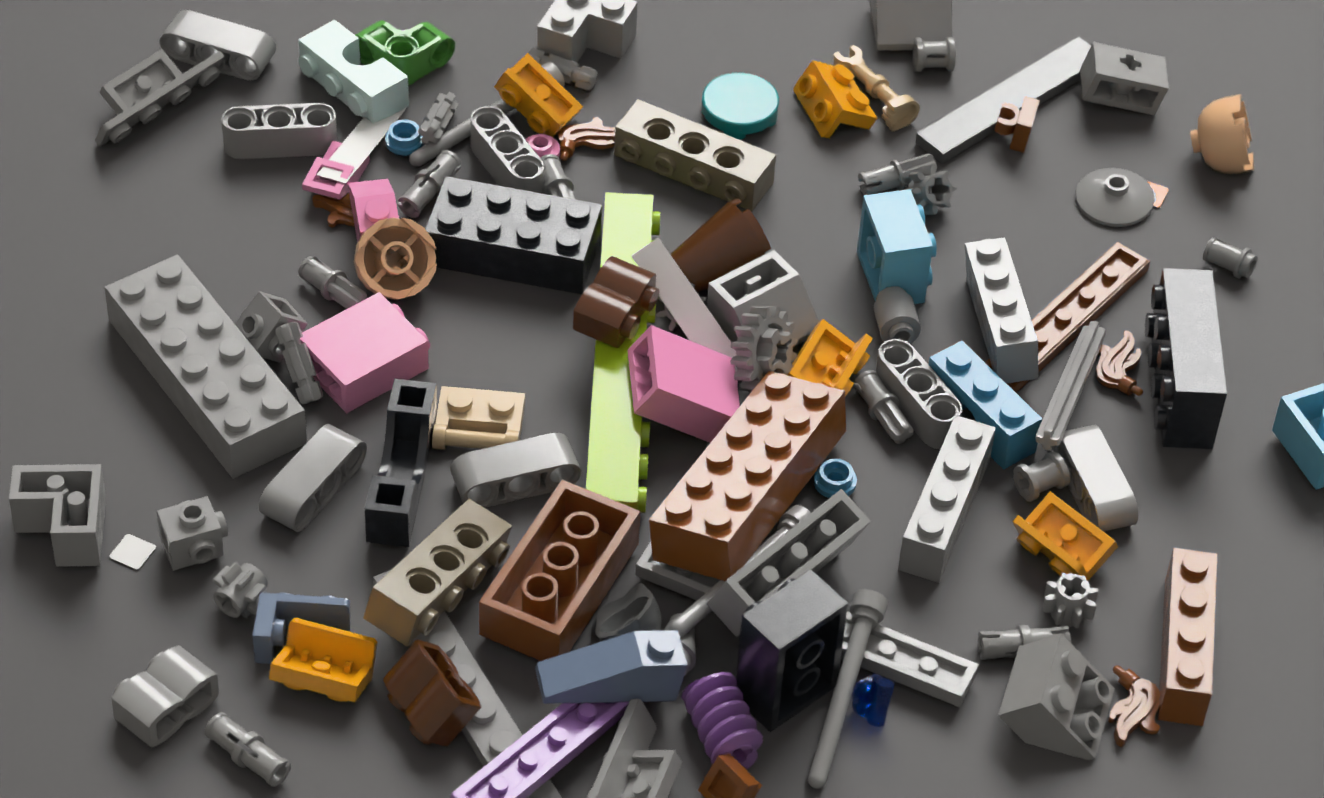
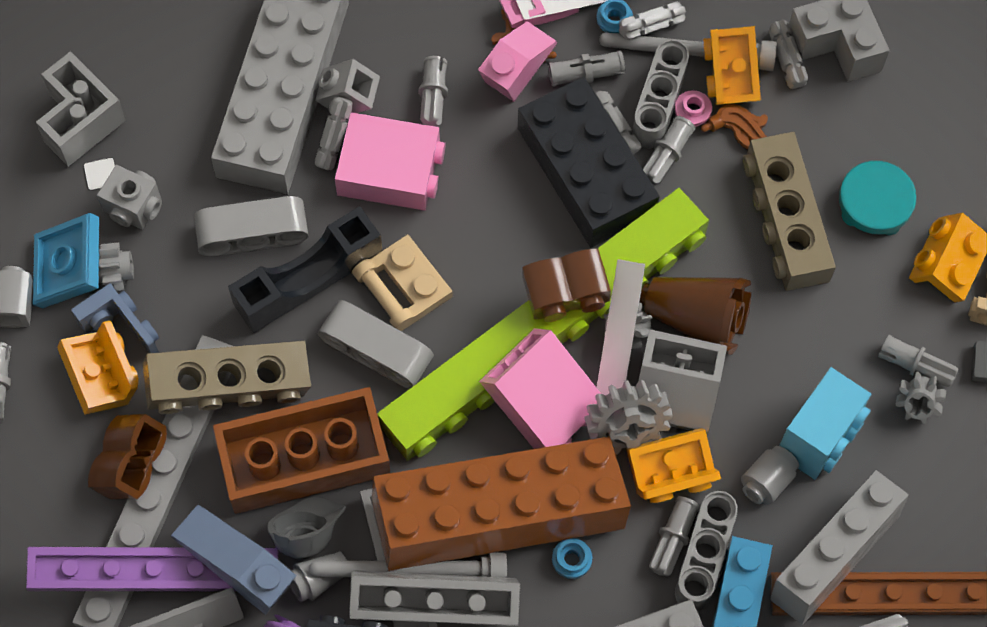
camera: 50 degrees right, 20 degrees up
(198, 612) = (66, 261): none -> dark azure tile
(395, 258) = (478, 111): light nougat cylinder -> none

